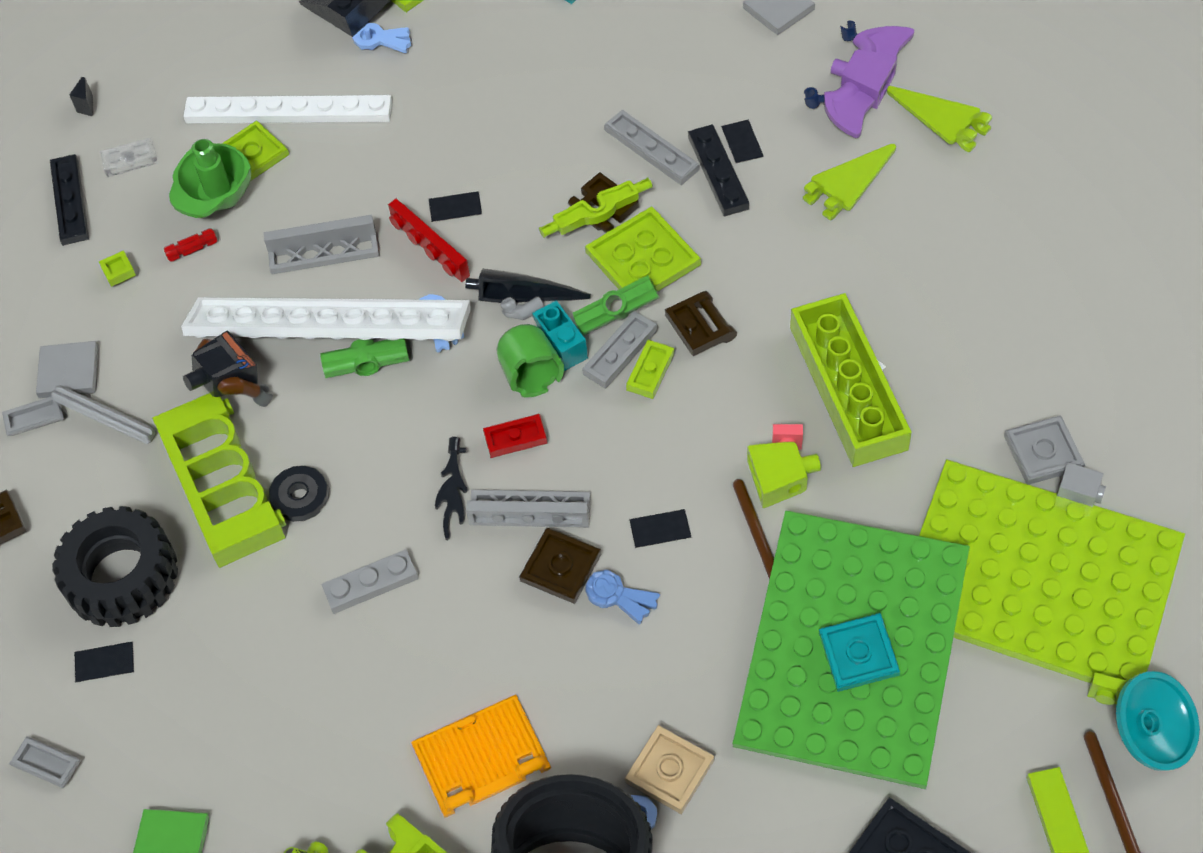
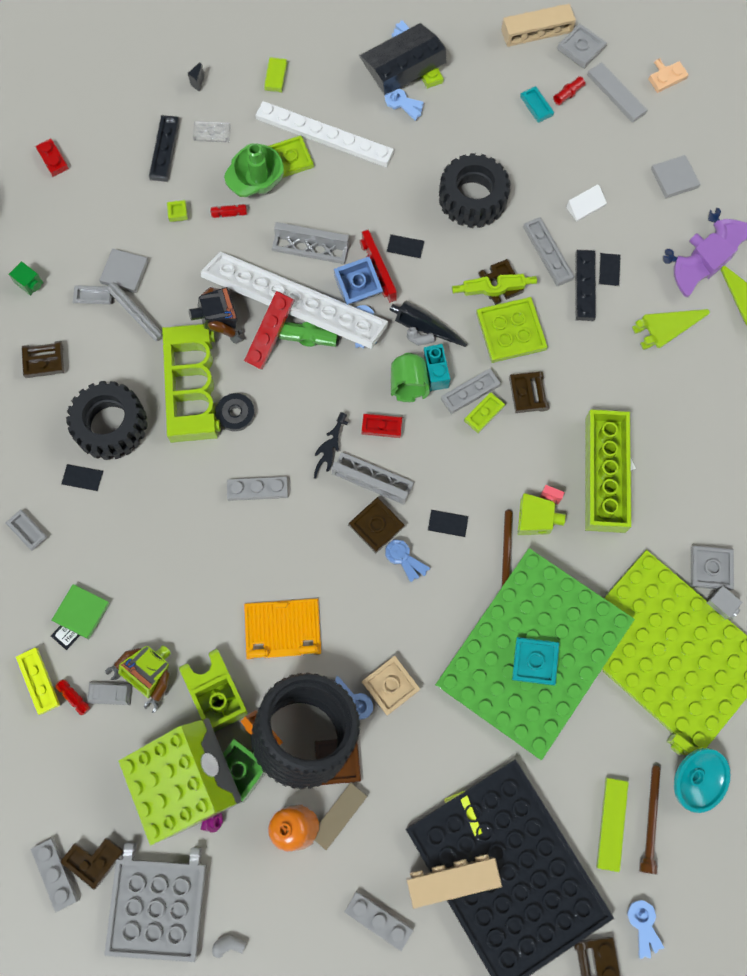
camera: 15 degrees right, 15 degrees up
(192, 61) = (275, 74): none -> lime tile
(307, 367) = (269, 330): none -> red plate
(405, 264) = (357, 280): none -> medium blue slope
(515, 81) = (474, 170): none -> black tyre
(599, 314) = (492, 360): bright green piece -> none
(676, 73) = (586, 203): none -> white slope

